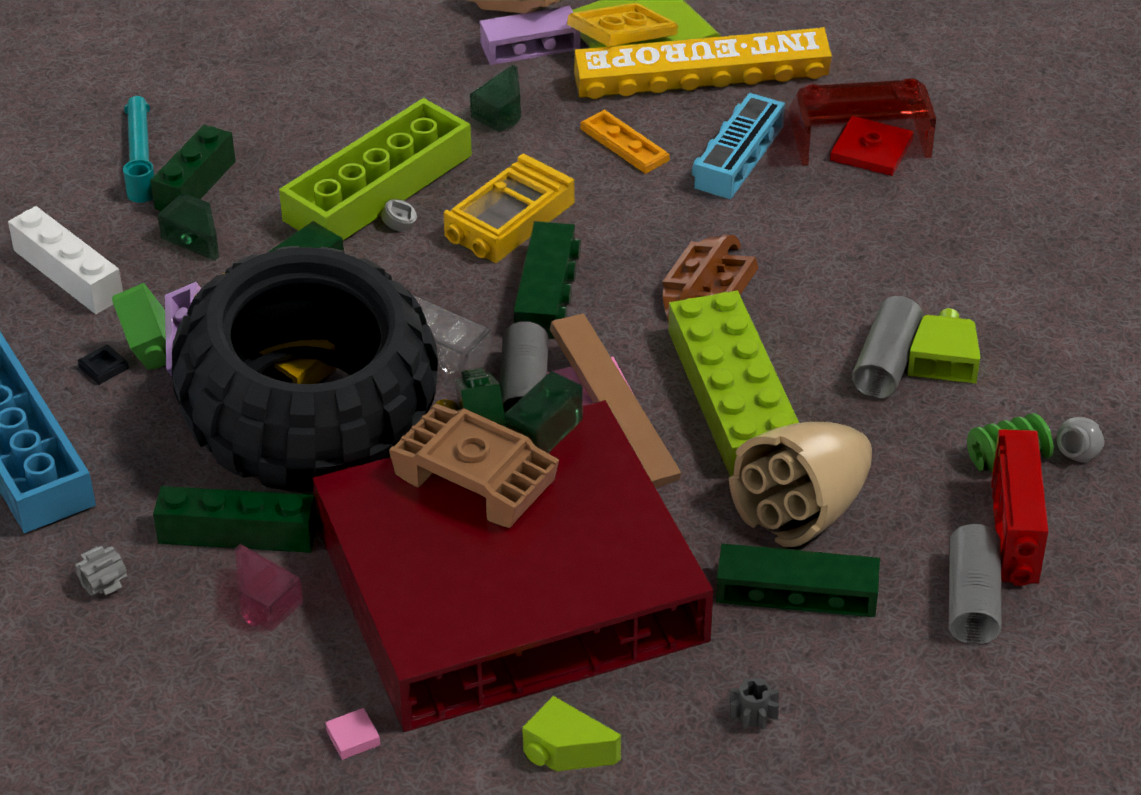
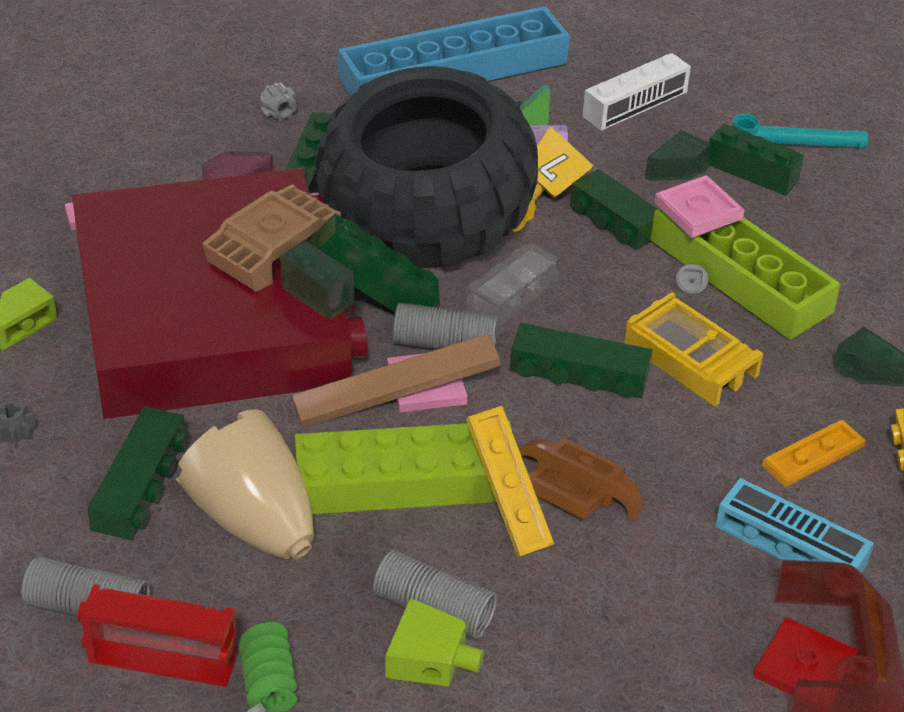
camera: 95 degrees right, 0 degrees up
(328, 178) = (699, 206): none -> bright pink plate
(752, 293) = (509, 481): none -> yellow tile

